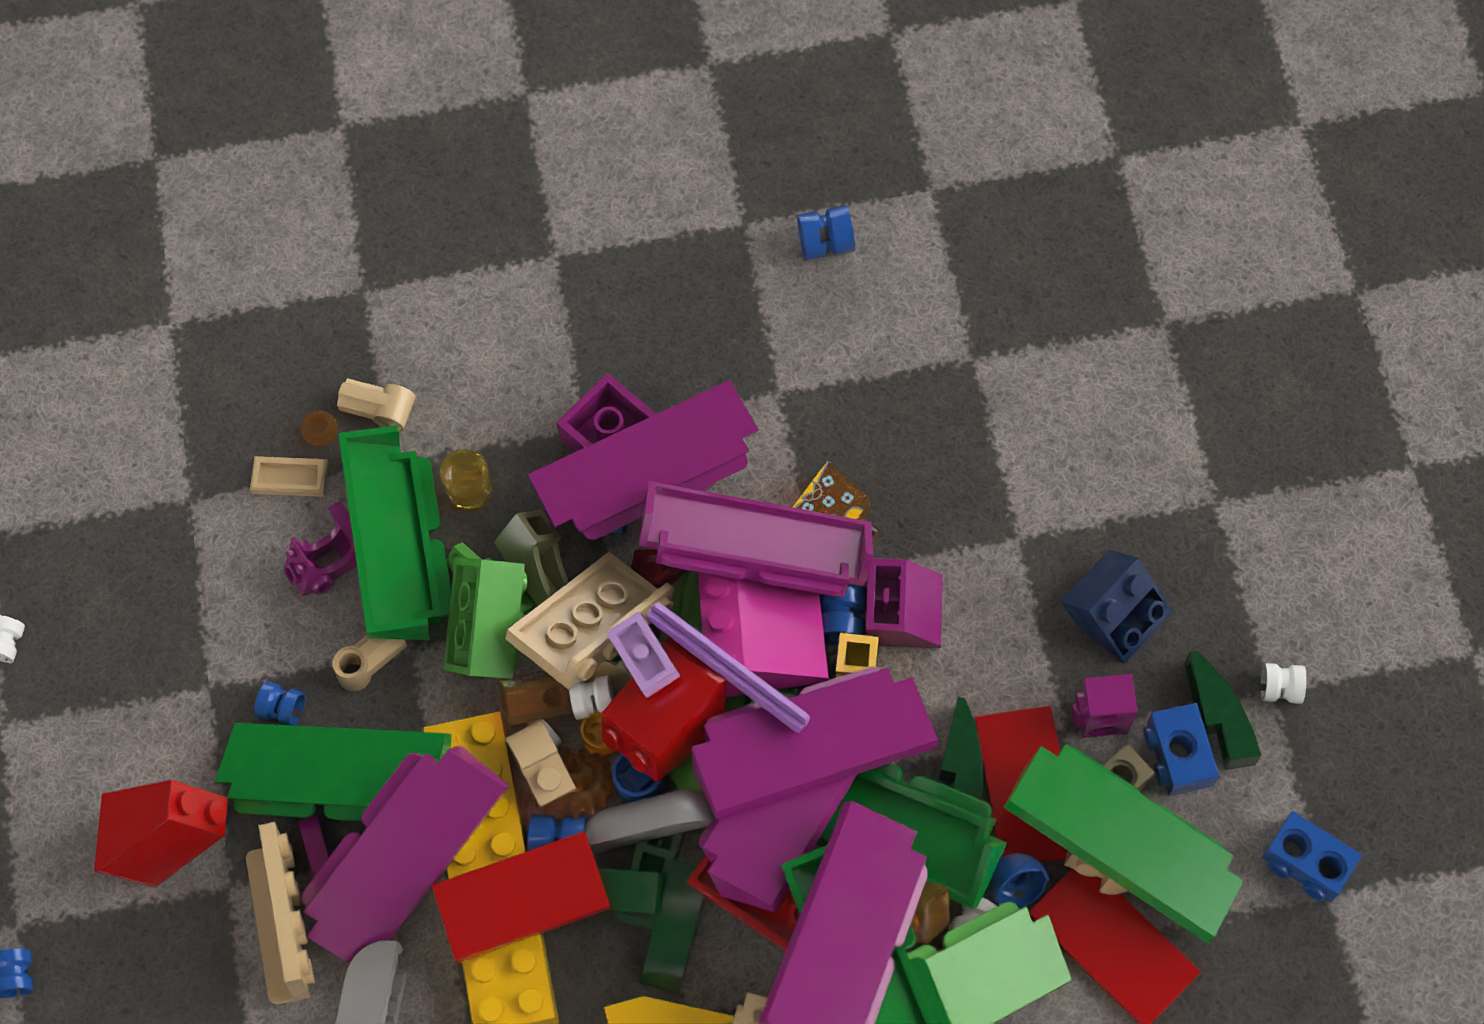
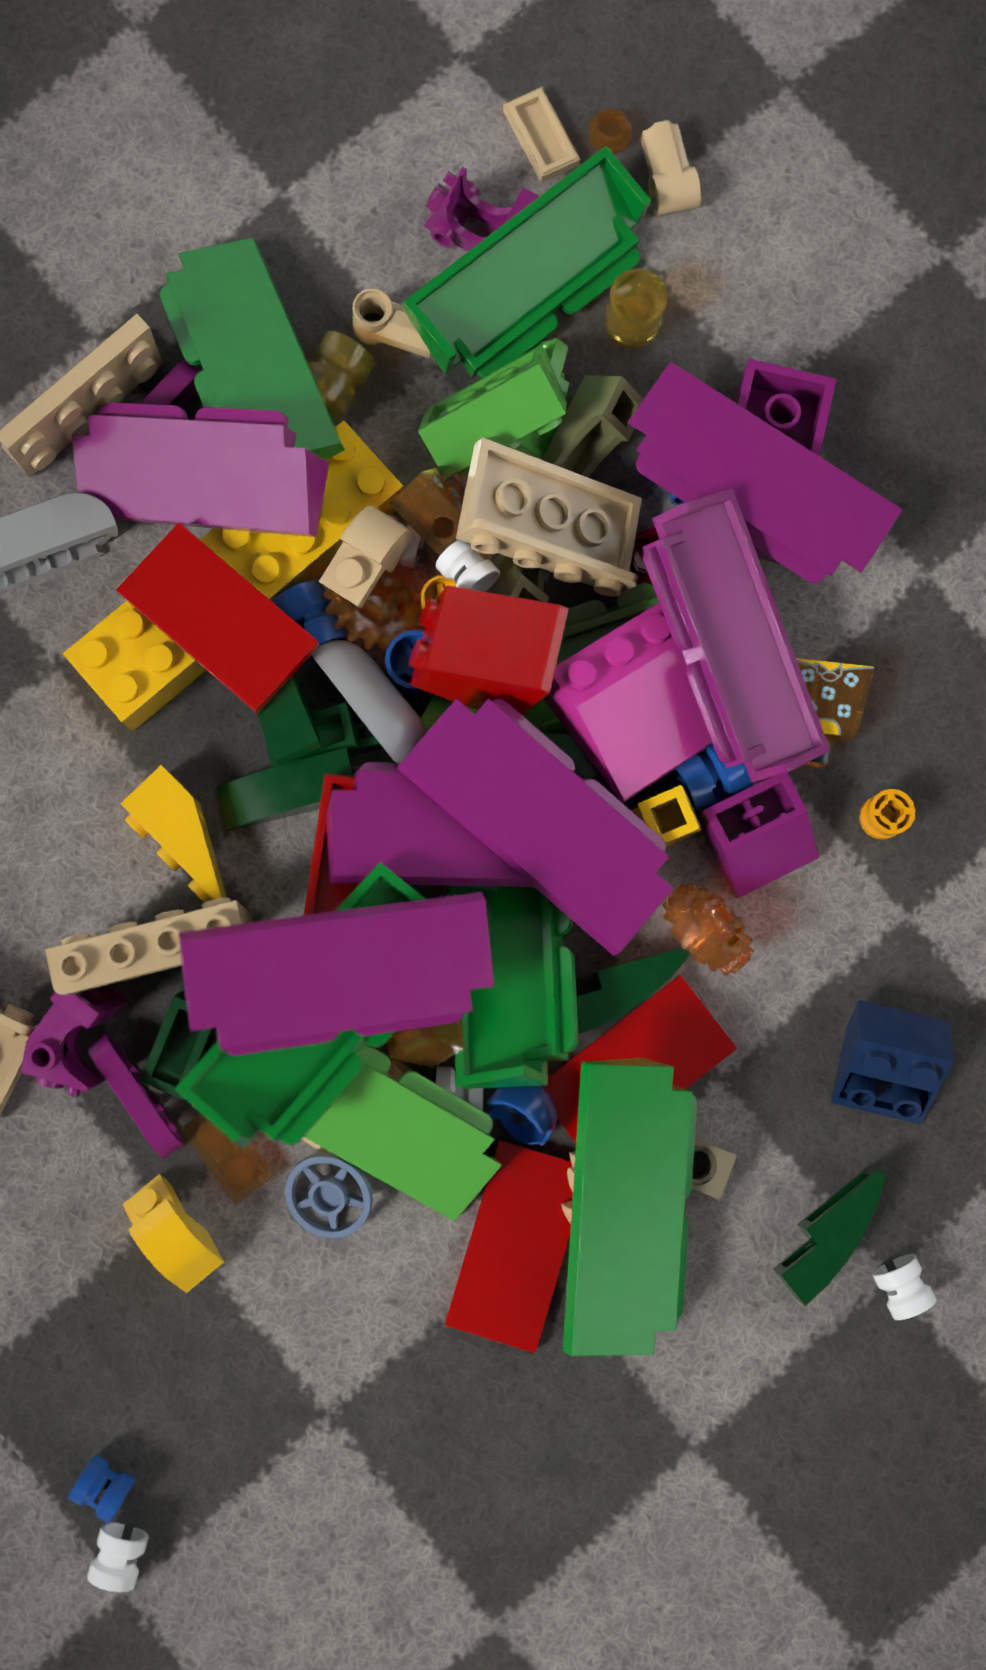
camera: 50 degrees right, 15 degrees up
(156, 830) = (91, 224): red slope -> none
(278, 703) = (296, 262): blue wheel -> none
(377, 709) = (338, 369): none -> clear yellow wheel
(643, 654) = (528, 590): lavender plate -> none
(728, 667) = (565, 687): medium lavender axle -> none
(935, 519) = (877, 817): none -> light orange wheel
(953, 674) = (708, 929): none -> clear orange gear
(1105, 706) = (765, 1109): magenta brick -> none
(1182, 727) = (793, 1209): blue brick -> none
(1315, 848) = (735, 1411): blue brick -> none

